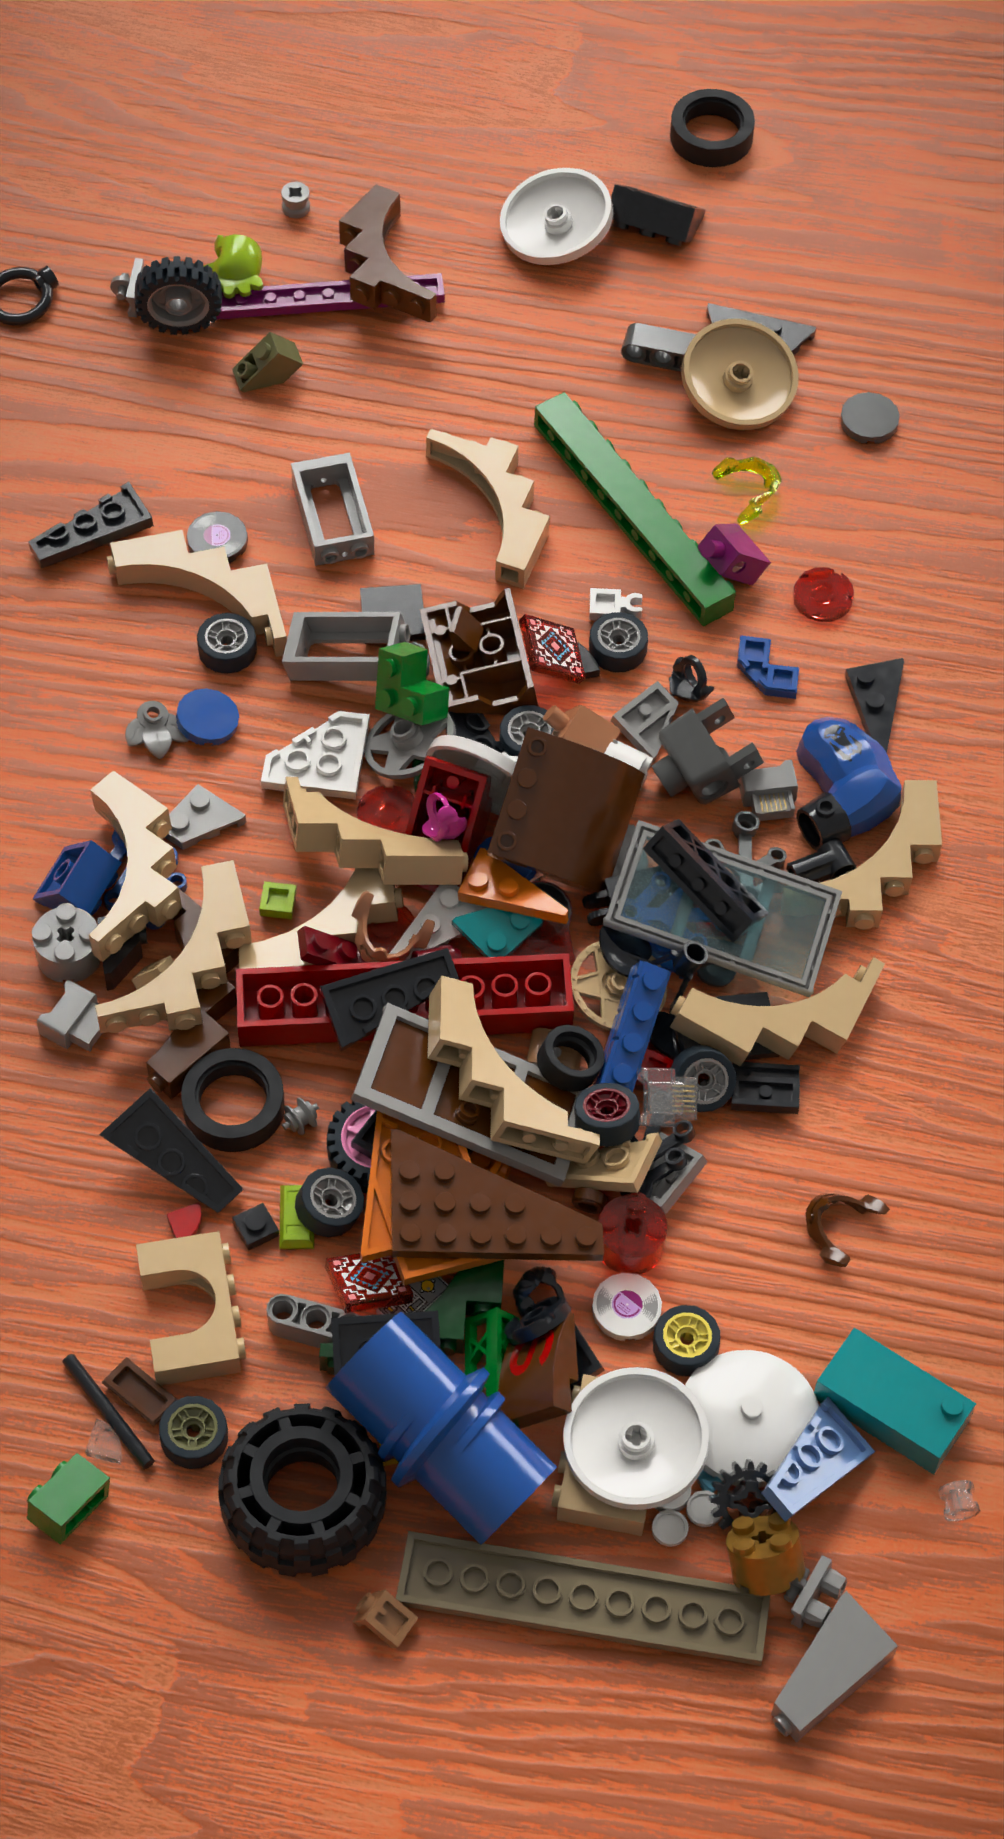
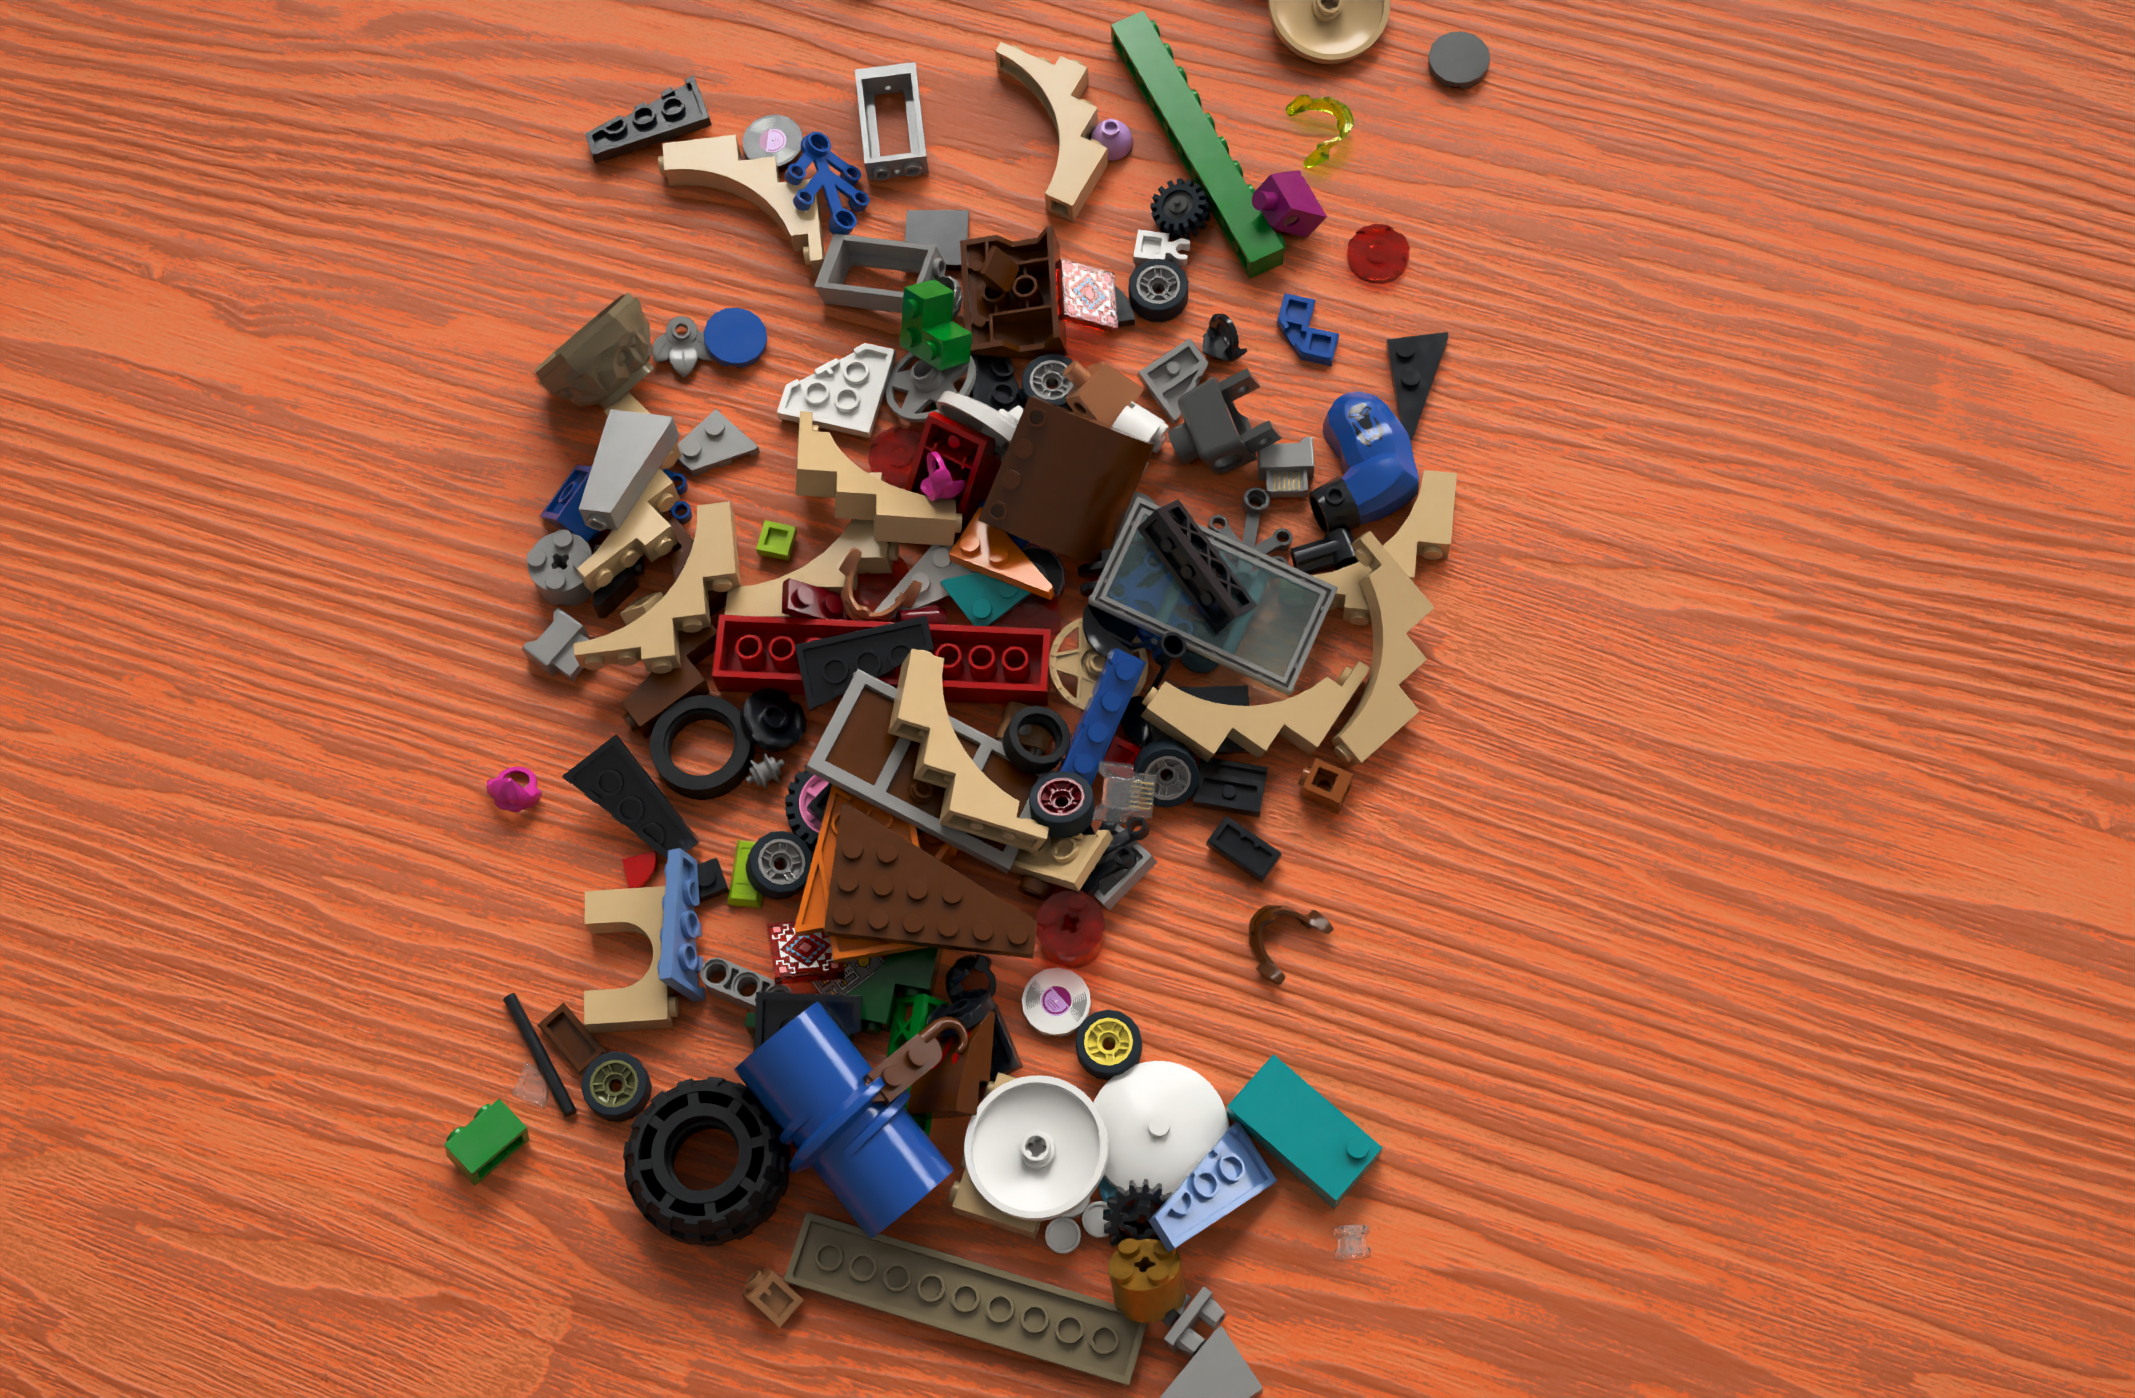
camera: 15 degrees right, 10 degrees up
(42, 1161) = (509, 794): none -> dark pink piece
(81, 740) = (601, 358): none -> dark tan rock
(124, 832) = (624, 464): none -> light grey slope
(240, 641) = (765, 244): black wheel -> none
(240, 1270) = (681, 926): none -> medium blue wing
(264, 537) = (817, 149): none -> blue plant
(301, 1066) = (772, 720): none -> black tile
(507, 1358) = (914, 1059): none -> reddish brown plate
(554, 505) = (1115, 137): none -> lavender brick
(628, 566) = (1180, 209): none -> black wheel
(788, 1144) = (1244, 849): none -> black plate
(859, 1076) = (1335, 778): none -> dark orange brick
(899, 906) = (1394, 609): none -> tan arch

